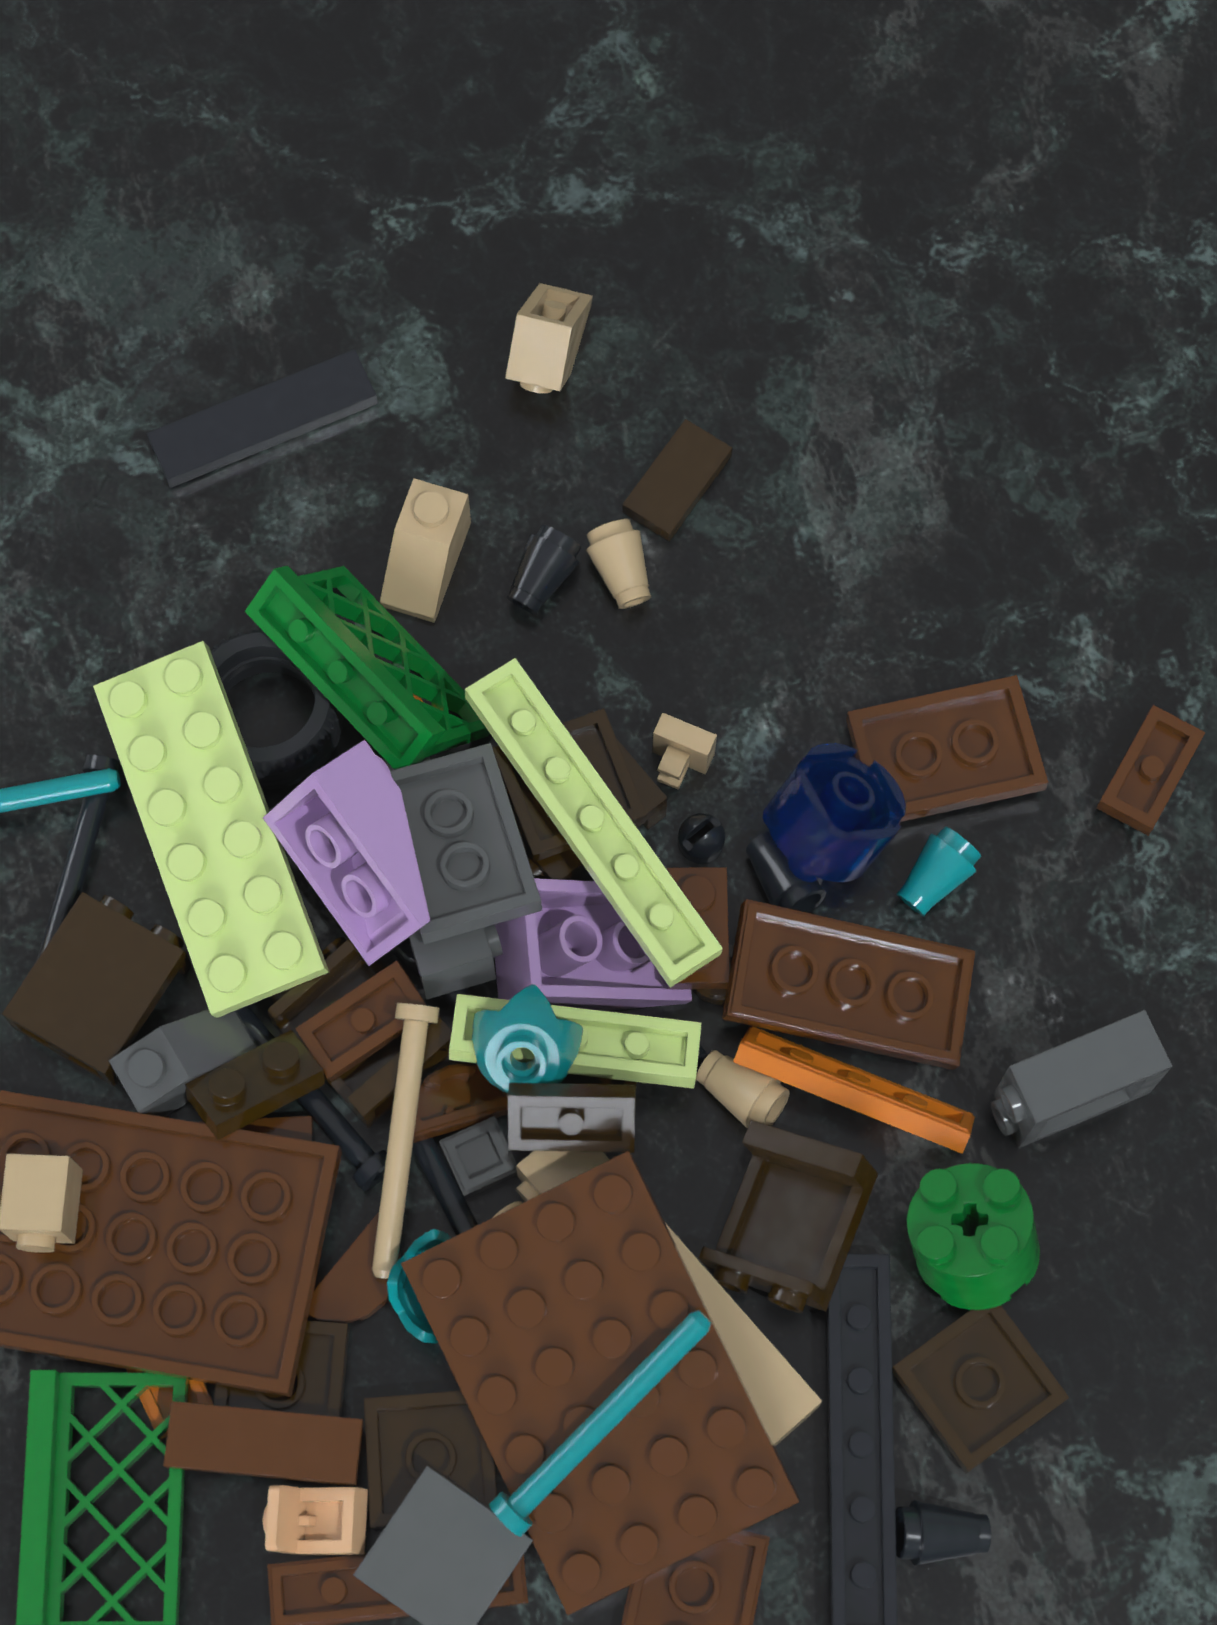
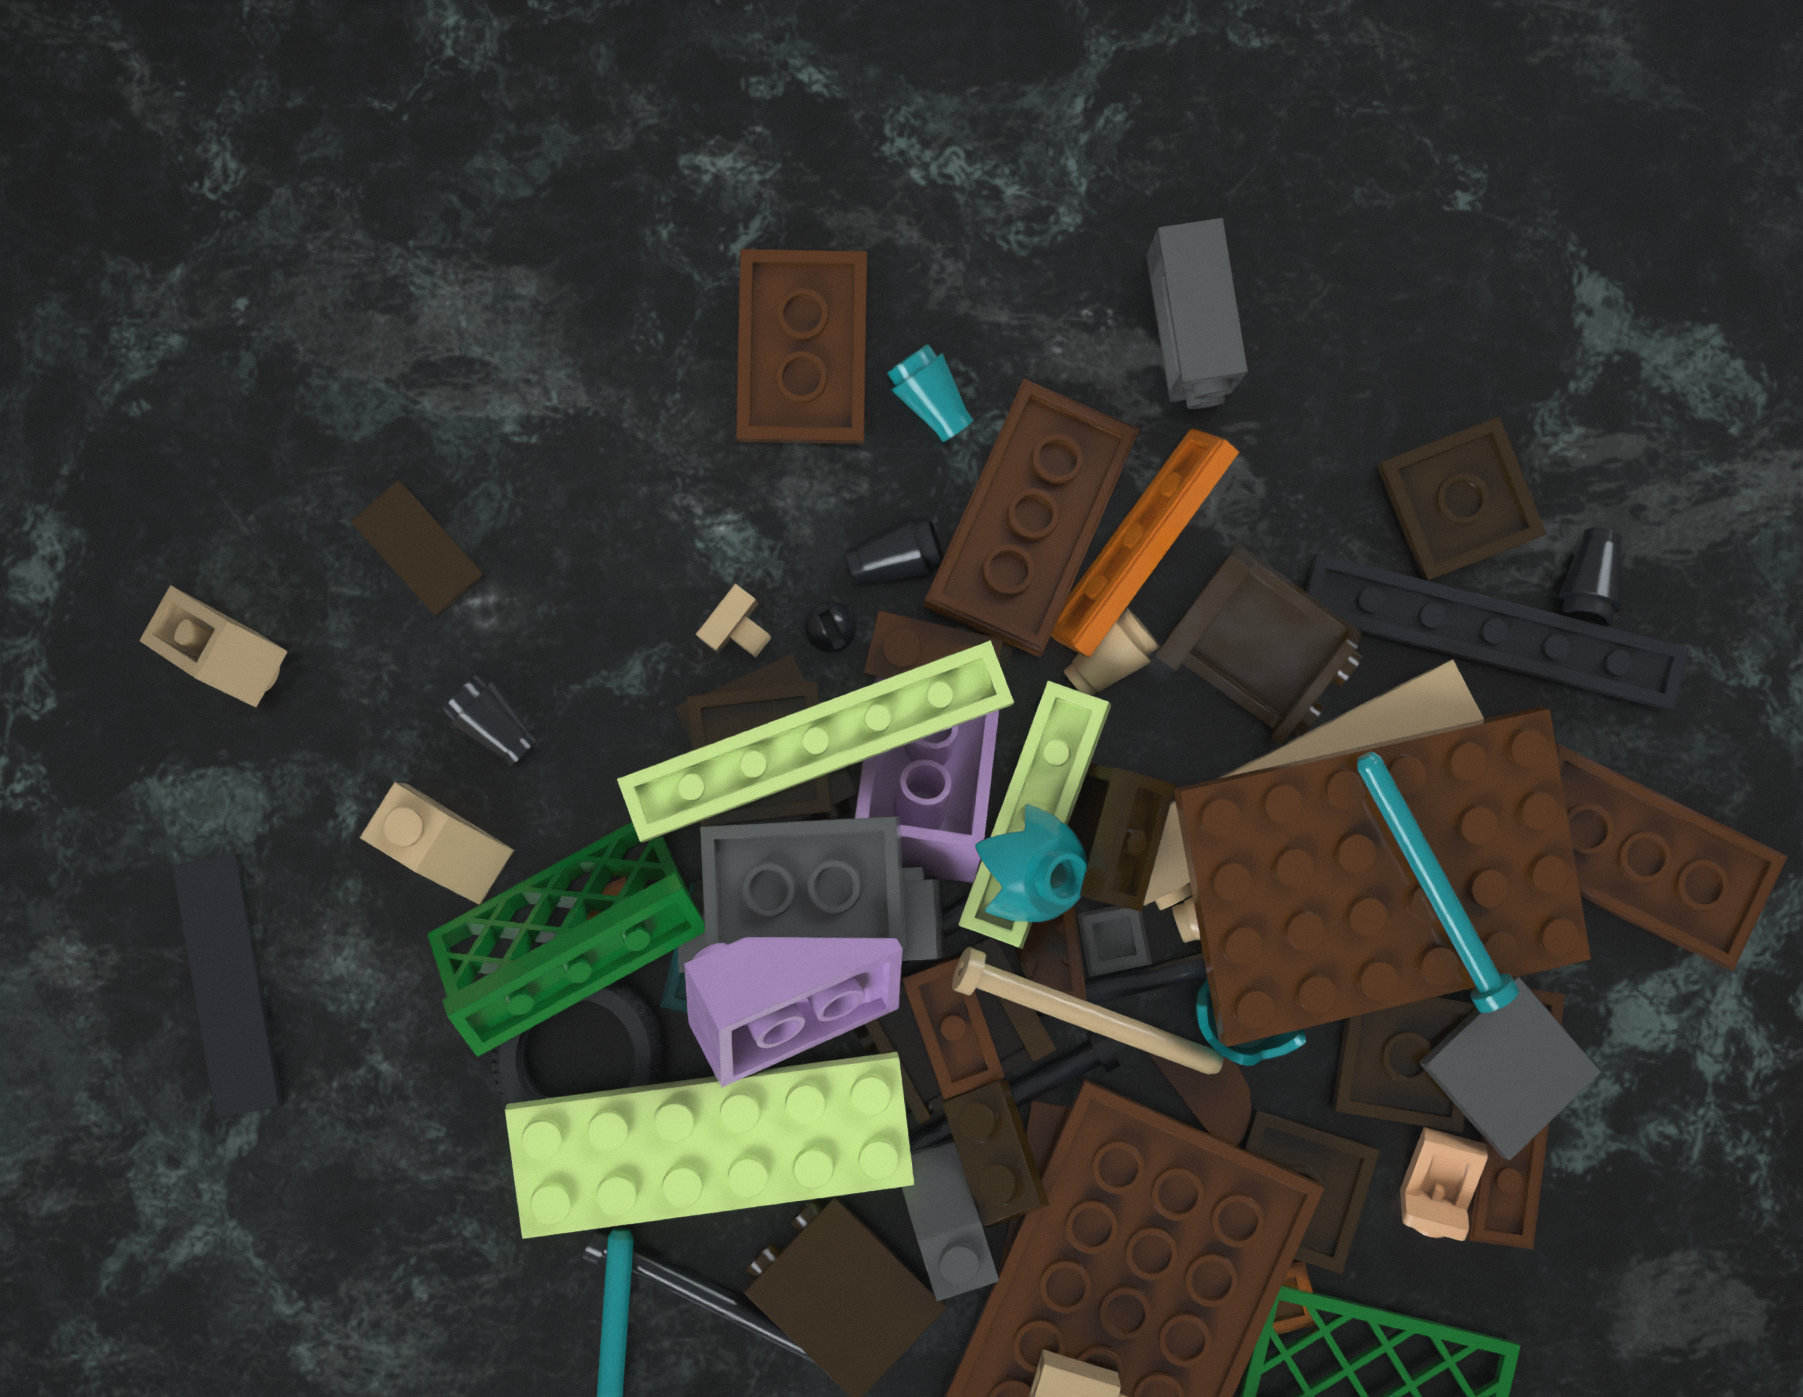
camera: 80 degrees left, 15 degrees up
(263, 1443) = (1361, 1221): reddish brown tile -> none
(620, 561) = (502, 634): tan cone -> none
(834, 814) = (856, 483): clear blue brick -> none
(973, 1235) = (1292, 482): green brick -> none
(1150, 770) = (876, 140): reddish brown plate -> none

